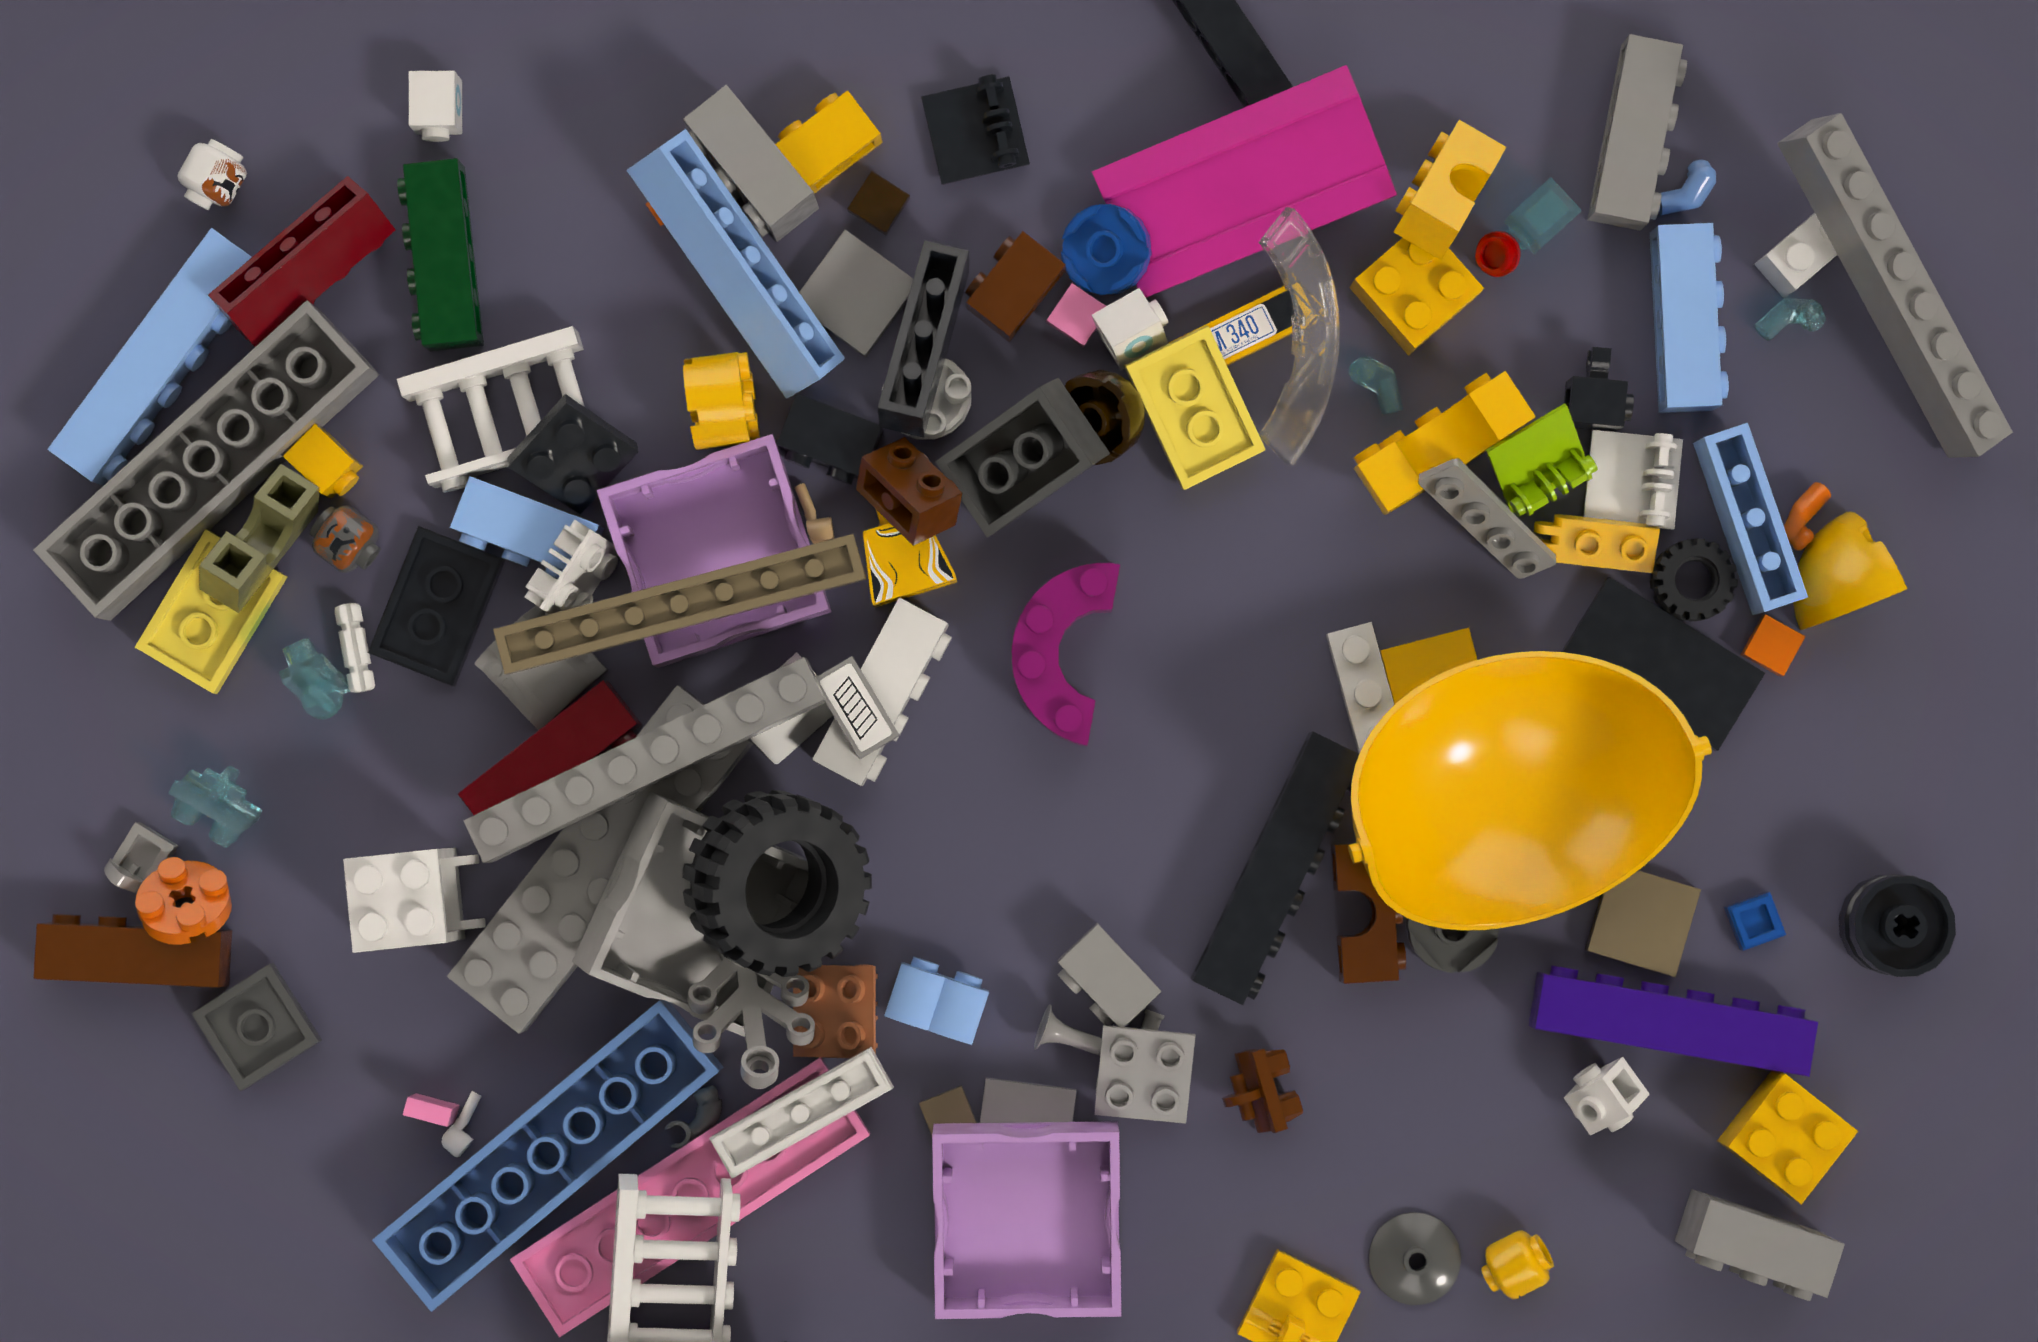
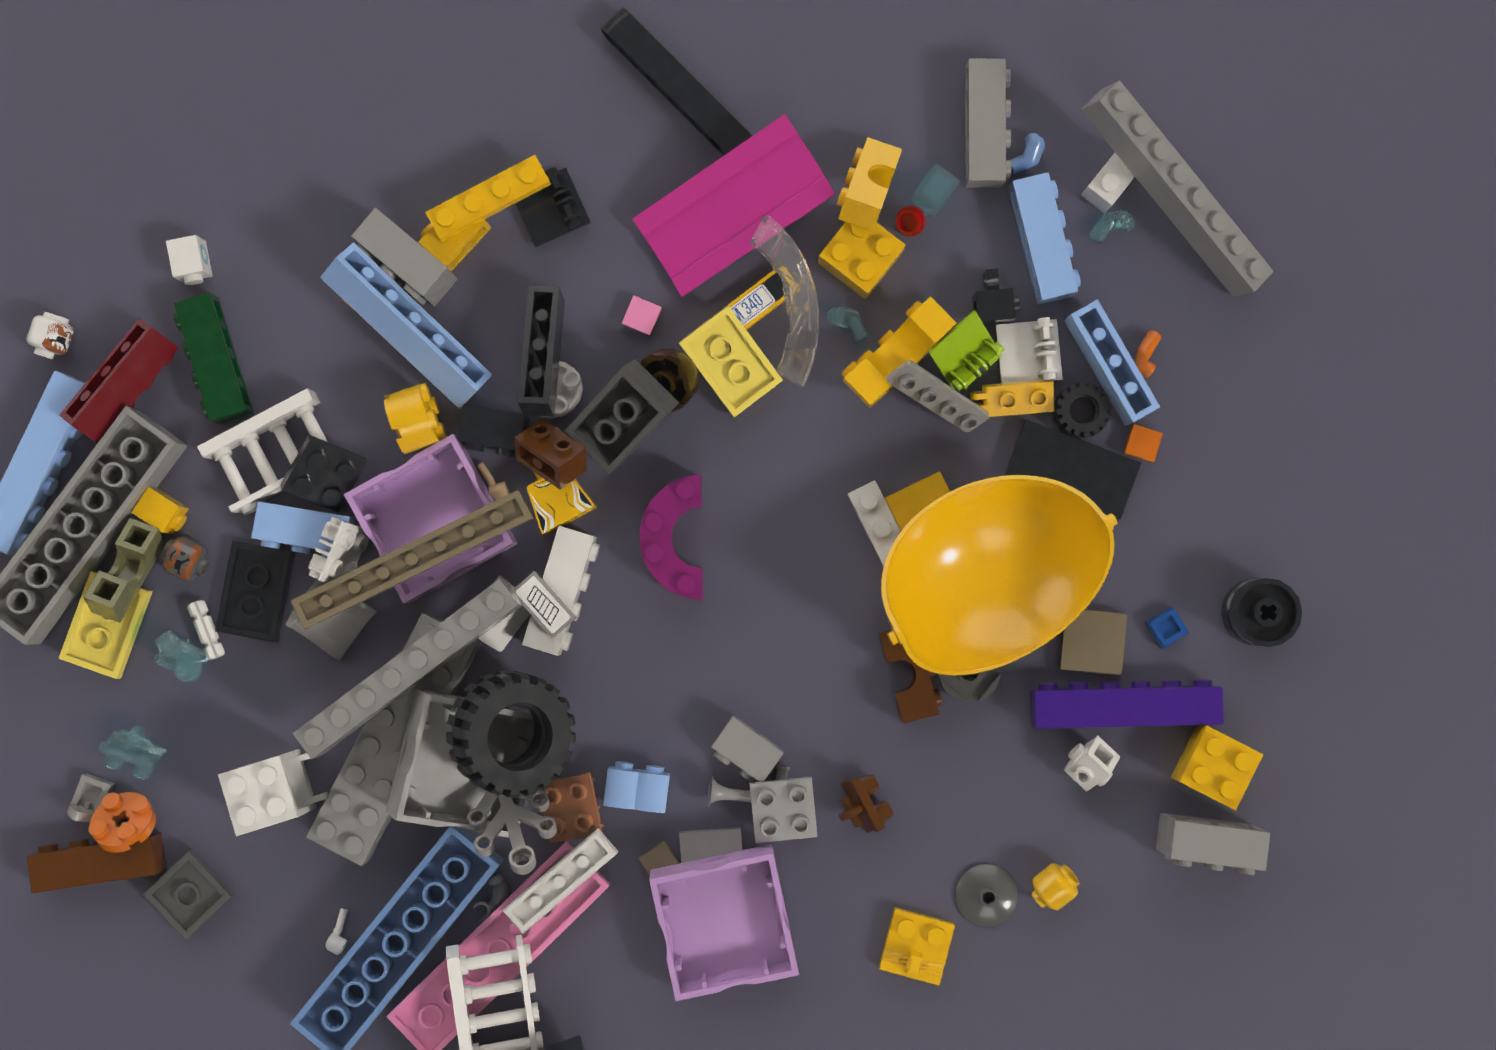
camera: 10 degrees left, 0 degrees up
(431, 1109) = (314, 927): bright pink tile -> none
(576, 735) = (366, 654): dark red brick -> none
(856, 293) = (492, 330): light grey tile -> none
(878, 203) = (496, 267): dark brown tile -> none
(890, 101) = (488, 198): none -> yellow plate
(1014, 285) = (595, 304): reddish brown brick -> none
(1106, 249) = (651, 268): blue tile -> none
(1131, 327) = (678, 316): white brick -> none
(1276, 869) = (844, 657): black brick -> none
(1844, 572) = (1181, 385): yellow brick -> none

